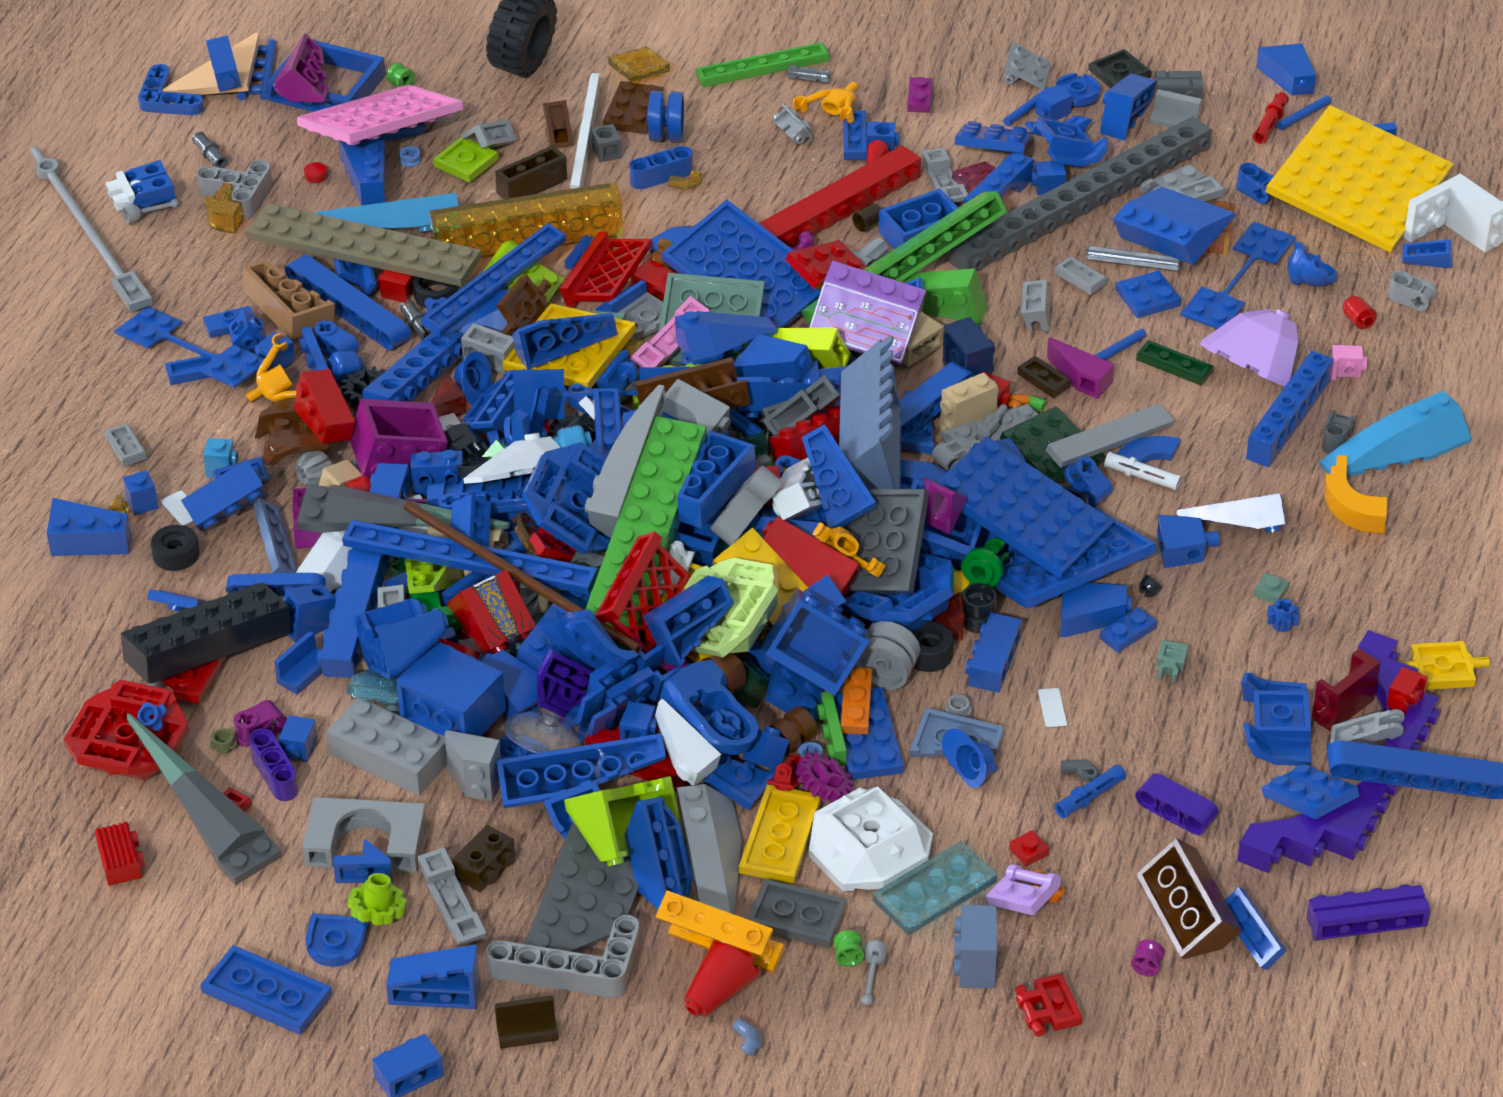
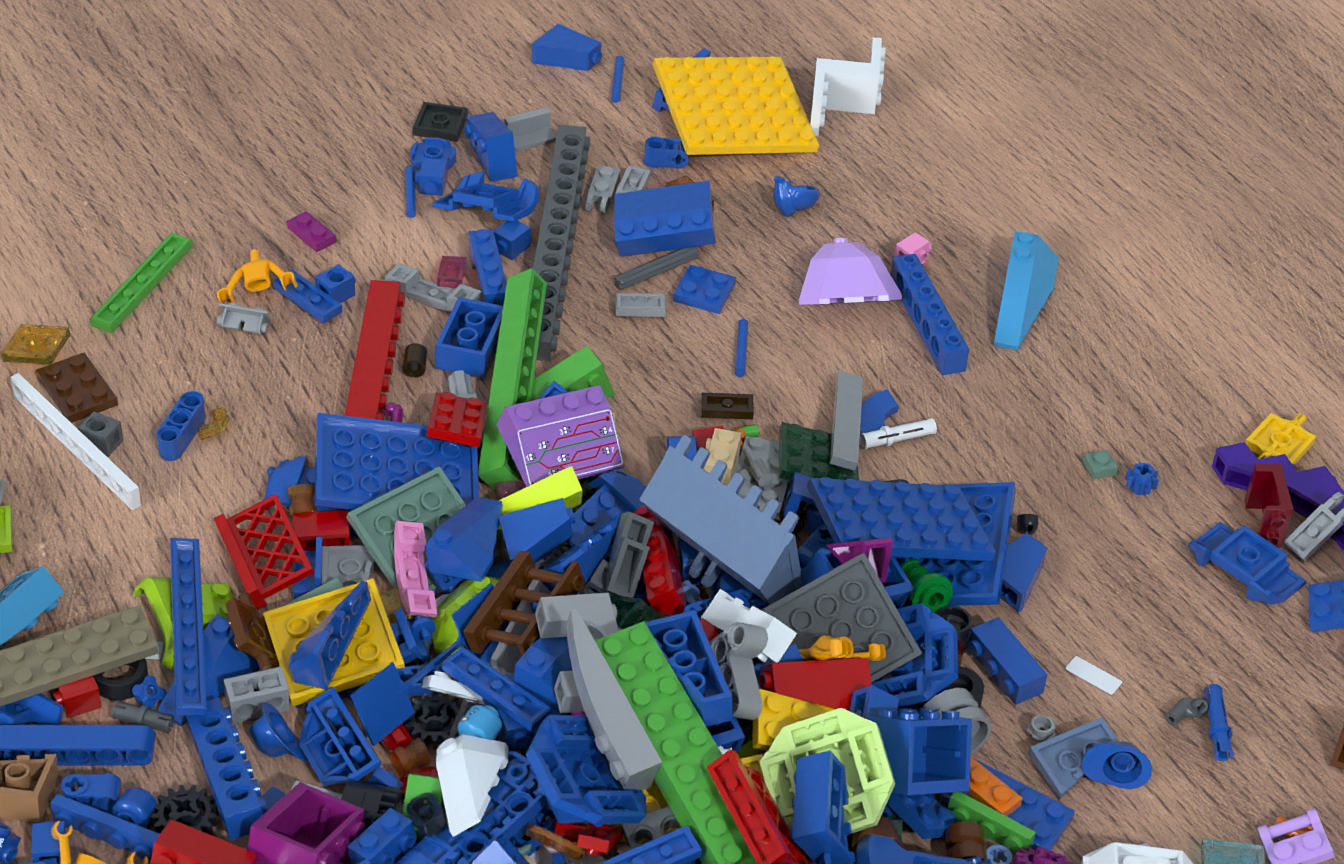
camera: 50 degrees left, 0 degrees up
(449, 398) = (276, 767): clear red slope -> none
(494, 222) = (137, 549): clear yellow brick -> none
(521, 424) = (418, 742): blue piece -> none
(531, 173) = (75, 506): dark brown brick -> none
(558, 124) = (37, 445): reddish brown slope -> none
(577, 252) = (207, 551): blue axle -> none
(664, 116) = (135, 375): blue wheel -> none
(809, 74) = (195, 266): dark grey axle -> none
(838, 484) = (783, 597): blue wing -> none
(876, 150) = (350, 303): red cone -> none
(968, 346) = (656, 418): dark blue brick -> none
(993, 137) = (431, 230): blue plate -> none
(1026, 66) = (366, 158): light grey hinge -> none
(1029, 848) = (1241, 805): red plate -> none
(1036, 304) = (646, 347): light grey hinge -> none
(1086, 371) = (754, 378): magenta slope -> none
(1089, 480) = (879, 466): blue piece -> none
(1128, 629) = (1058, 570): blue plate -> none
(1171, 659) = (1122, 569): sand green plate -> none
(1174, 362) = (796, 331): dark green tile -> none
(1177, 804) = (1283, 684): dark purple beam -> none
(1180, 82) = (510, 103): dark grey brick -> none
(1183, 540) = (999, 465): blue torso -> none
(1218, 307) = (757, 270): blue hinge -> none
(1253, 512) = (1011, 411): wedge -> none
(1272, 113) = (600, 90): red pin -> none
(1337, 431) = (978, 311): dark grey piece -> none
(1351, 507) = (1061, 361): light orange arch -> none
(1359, 312) = (867, 209): red brick -> none
(1406, 690) = (1313, 475): red brick -> none
(1409, 291) = (875, 172): light grey piece -> none
(1436, 253) = (856, 125): blue slope -> none

